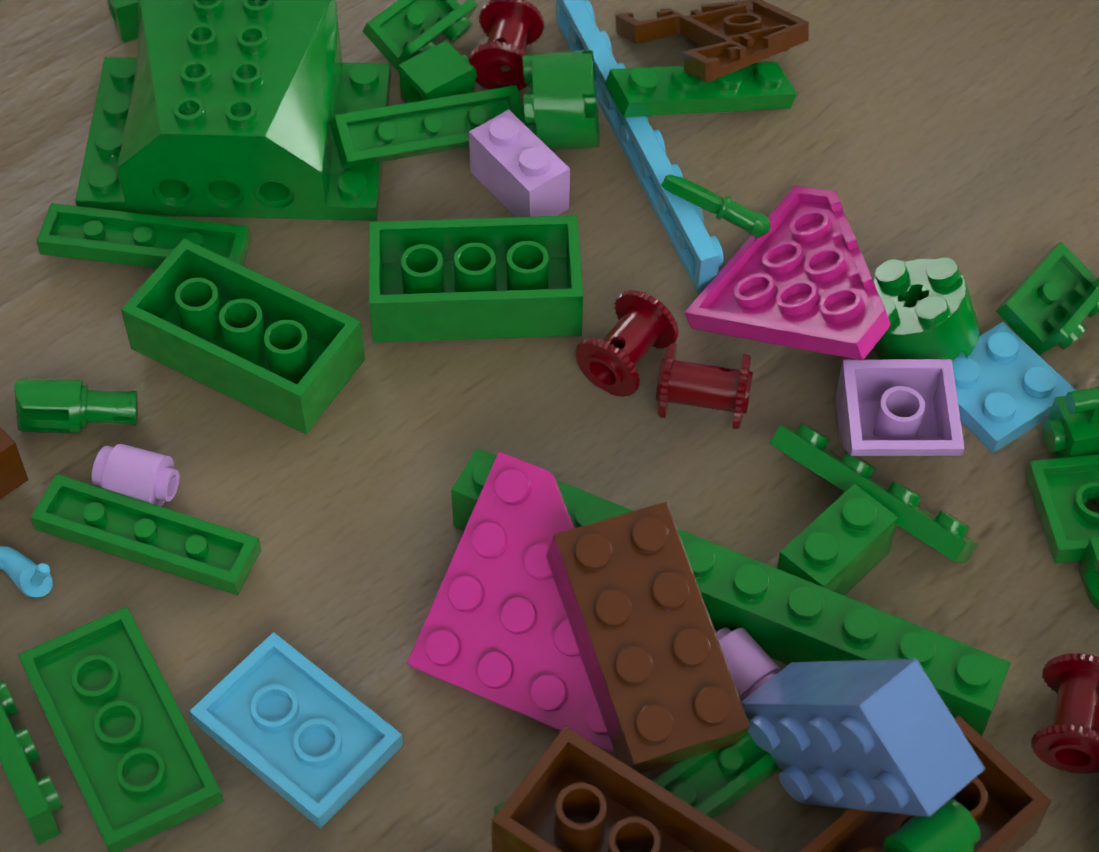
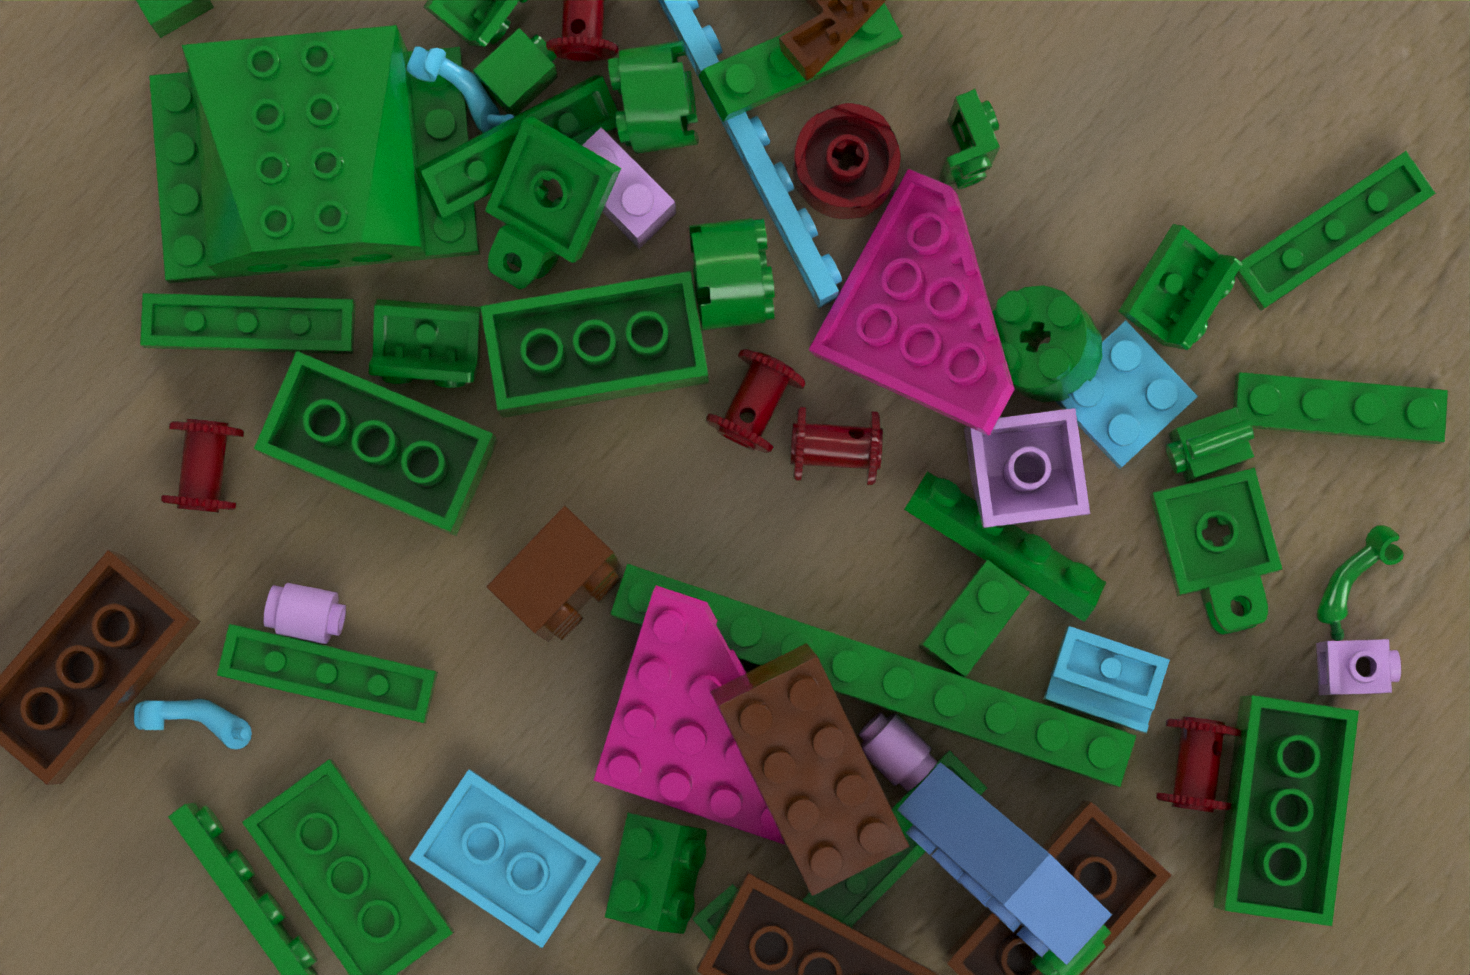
camera: 10 degrees left, 30 degrees up
(69, 406) = (222, 540): green arm -> none
(75, 319) = (202, 465): none -> dark red hose
(315, 264) = (425, 342): none -> green bracket
(363, 53) = (429, 64): none -> medium azure piece
(400, 422) = (557, 576): none -> reddish brown brick
(424, 158) = (534, 225): none -> green plate
(462, 763) = (656, 874): none -> green bracket
(617, 232) = (732, 273): none -> green brick
(726, 209) = (828, 222): green piece -> none
(739, 159) = (825, 140): none -> dark red brick
(857, 154) = (973, 129): none -> green bracket
(982, 621) = (1106, 679): none -> medium azure plate

